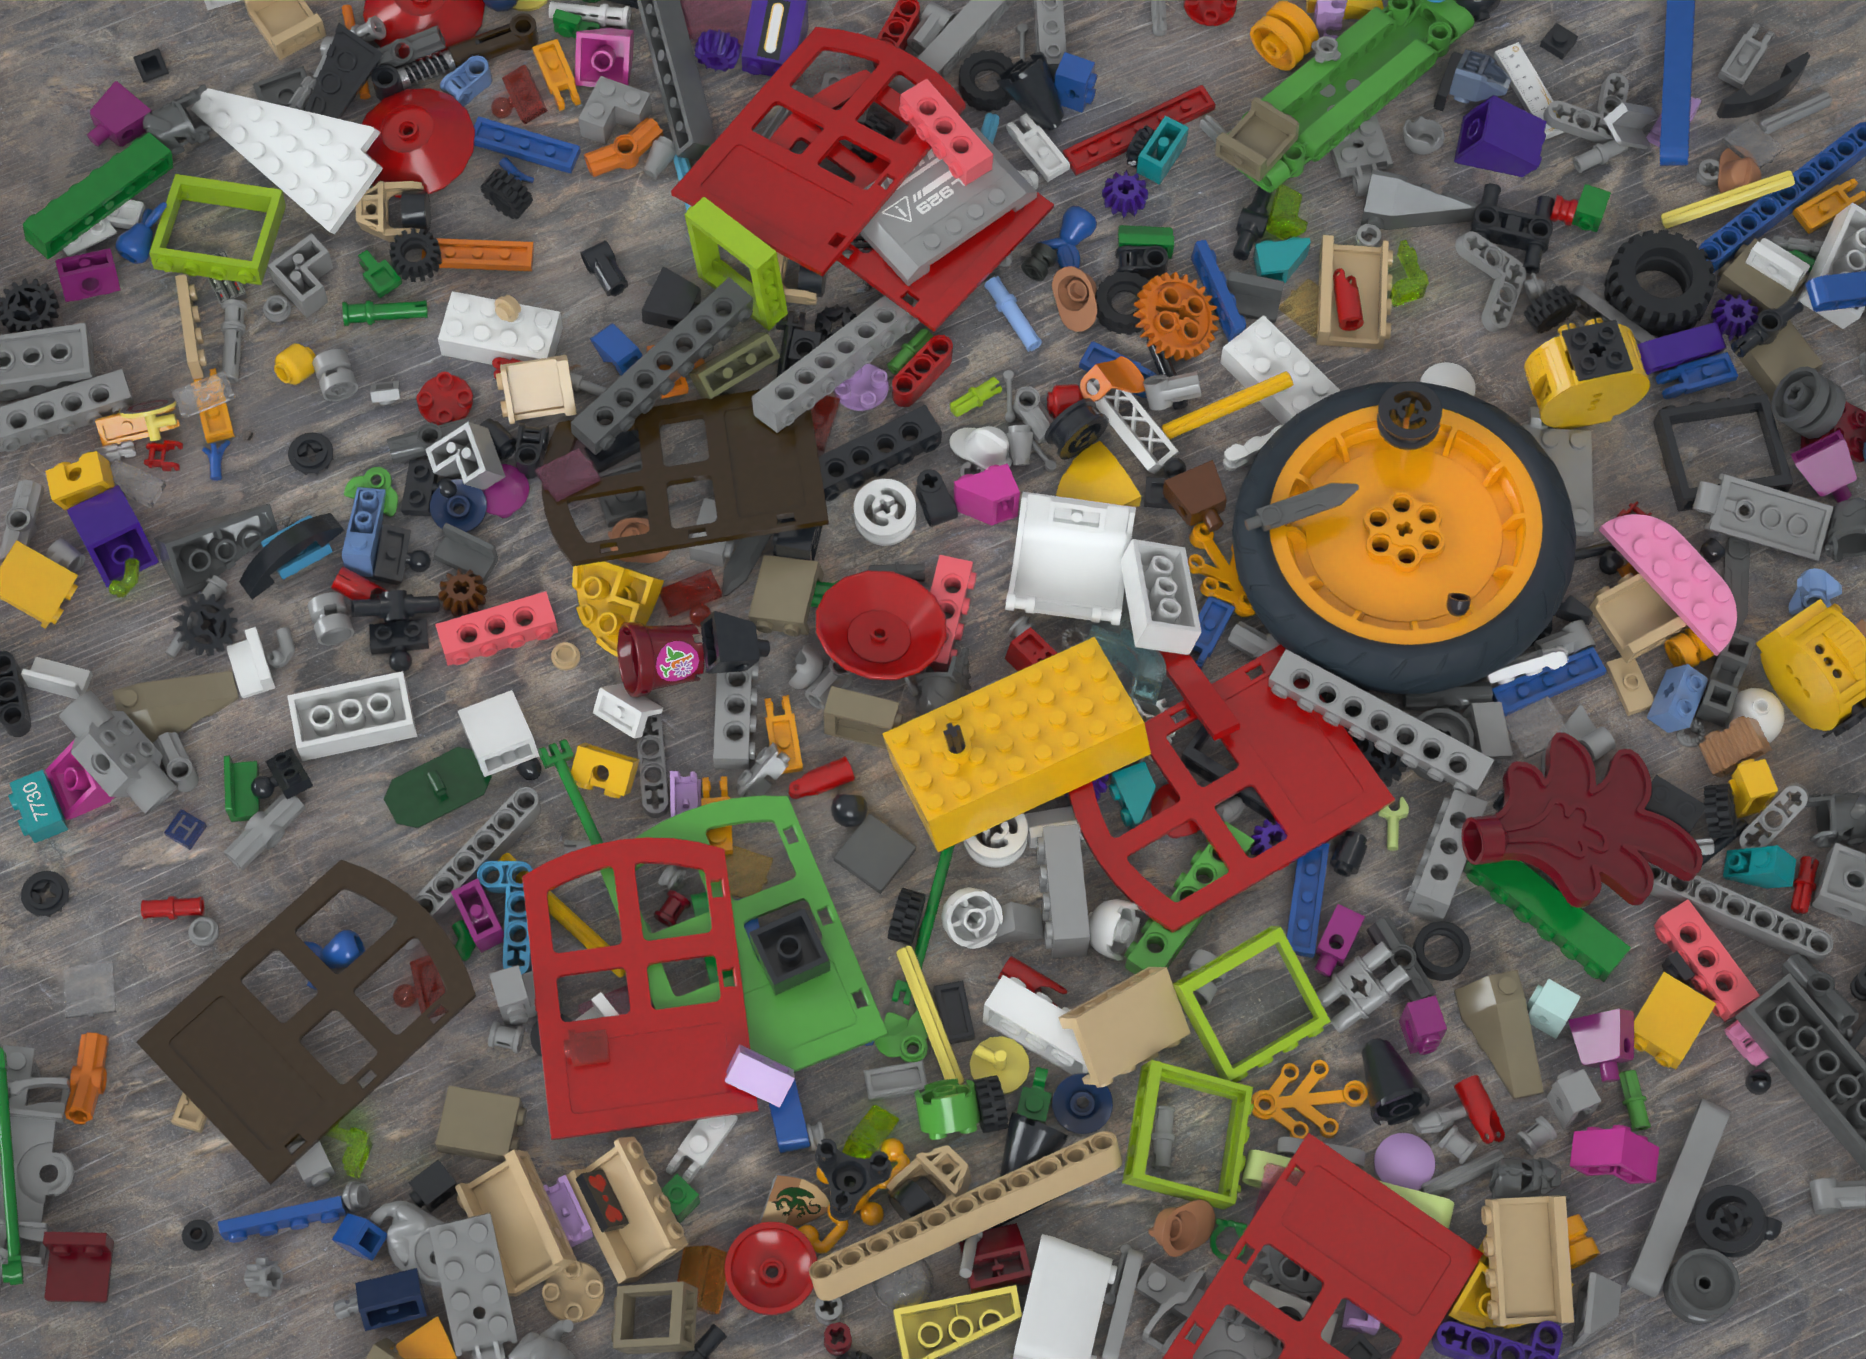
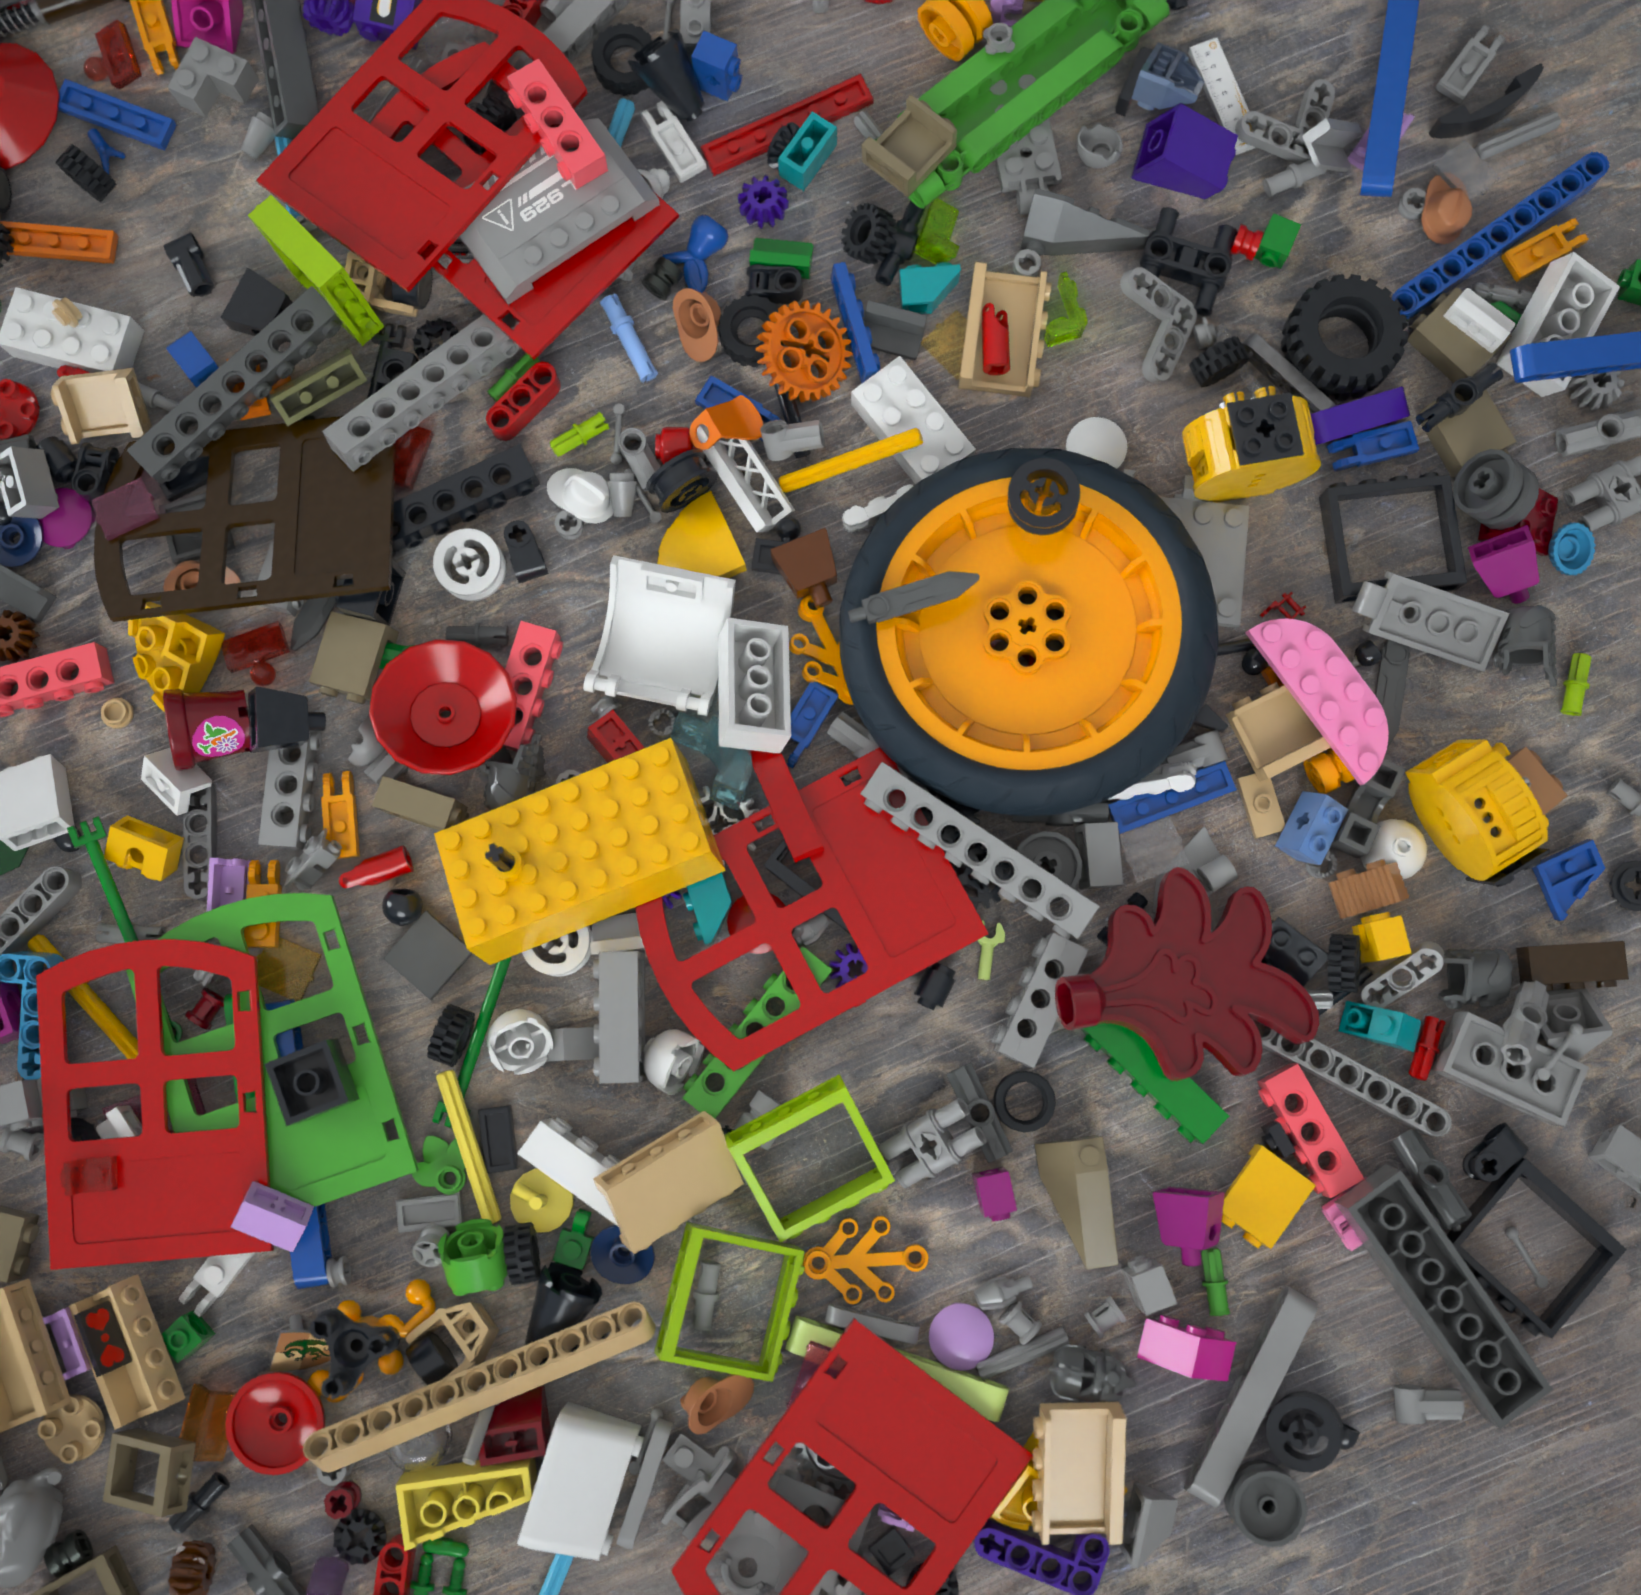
camera: 10 degrees right, 15 degrees up
(464, 83) = (60, 33): medium blue piece -> none
(611, 156) = (207, 132): orange piece -> none
(864, 389) = (459, 419): lavender dish -> none
(870, 1133) = (392, 1278): clear neon green bracket -> none
(901, 1111) = (426, 1248): none -> light grey wheel
(988, 495) = (578, 552): dark pink slope -> none
(1030, 977) = (581, 1113): red piece -> none
(1222, 1224) = (759, 1394): green piece -> none
(1234, 221) = (863, 220): none -> black tyre
(1307, 901) = (884, 1039): blue plate -> none
(1341, 929) = (918, 1076): magenta torso -> none
(1390, 1084) = (952, 1251): black cone -> none
(1458, 604) = (1075, 728): black hinge -> none
(1480, 1109) = (1047, 1284): red piece -> none
(1551, 1007) = (1135, 1180): light aqua brick -> none
(1559, 41) = (1262, 37): black plate -> none
(1581, 1247) = (1139, 1450): light orange wheel -> none
(1727, 199) = (1432, 238): light yellow axle -> none
(1734, 315) = (1429, 369): dark purple gear -> none
(1758, 1087) = (1351, 1259): black hinge -> none
(1811, 587) = (1477, 710): light blue brick -> none

